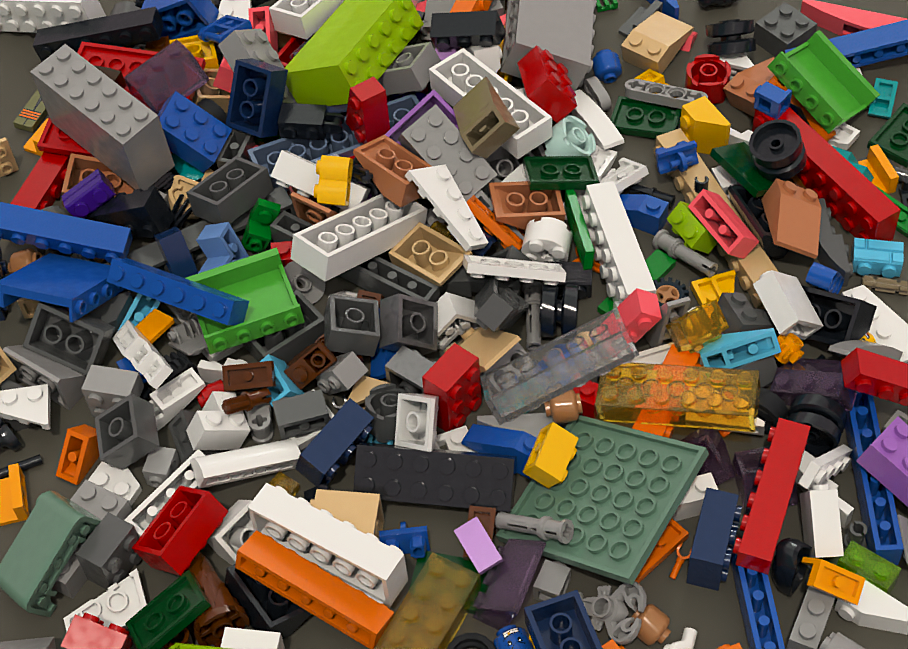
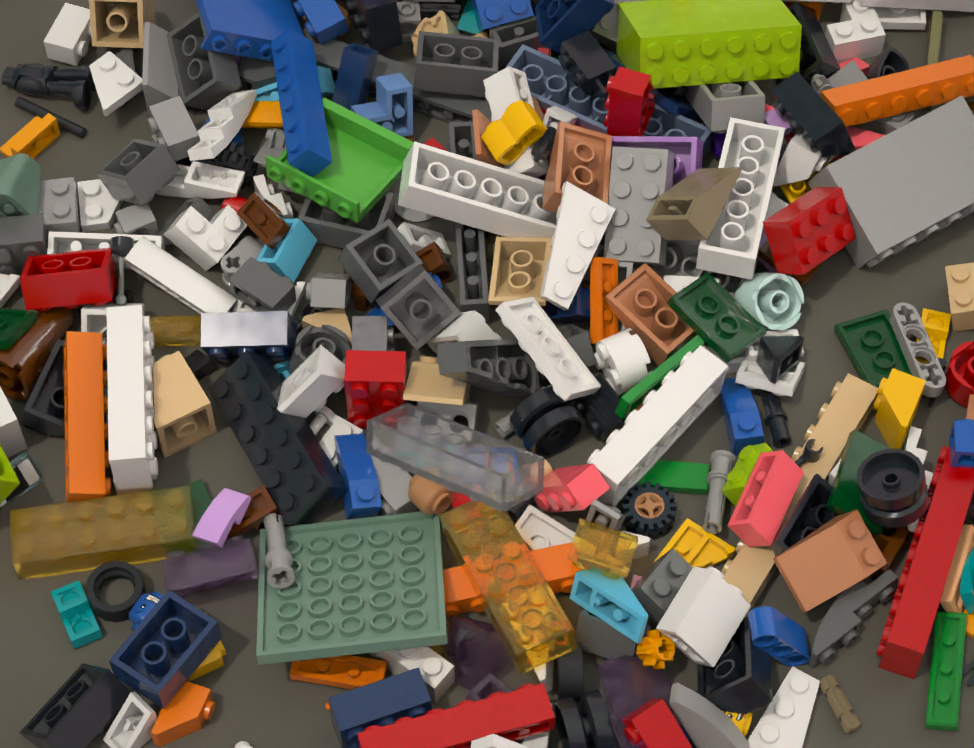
camera: 50 degrees right, 5 degrees up
(78, 453) = (100, 151): orange slope -> none
(180, 218) = (406, 50): black piece -> none
(188, 478) = (120, 248): none -> hinge
(246, 401) = (236, 236): reddish brown axle -> none
(257, 231) = (454, 109): green slope -> none
(309, 364) = (317, 259): reddish brown slope -> none
(408, 540) = (201, 460): blue hips -> none
(551, 455) = (361, 515): yellow brick -> none
(551, 580) = (240, 606): light grey brick -> none
(597, 93) = (869, 288): light grey beam -> none
(597, 122) = (829, 303): white slope -> none
(607, 66) = (915, 273): blue head -> none
(613, 611) = (242, 671): light grey animal -> none
(615, 161) = (779, 355): none -> black slope
(653, 625) = (255, 714): medium nougat head -> none
(676, 157) = (825, 406): blue hips -> none
(877, 257) = (866, 674): medium azure brick -> none

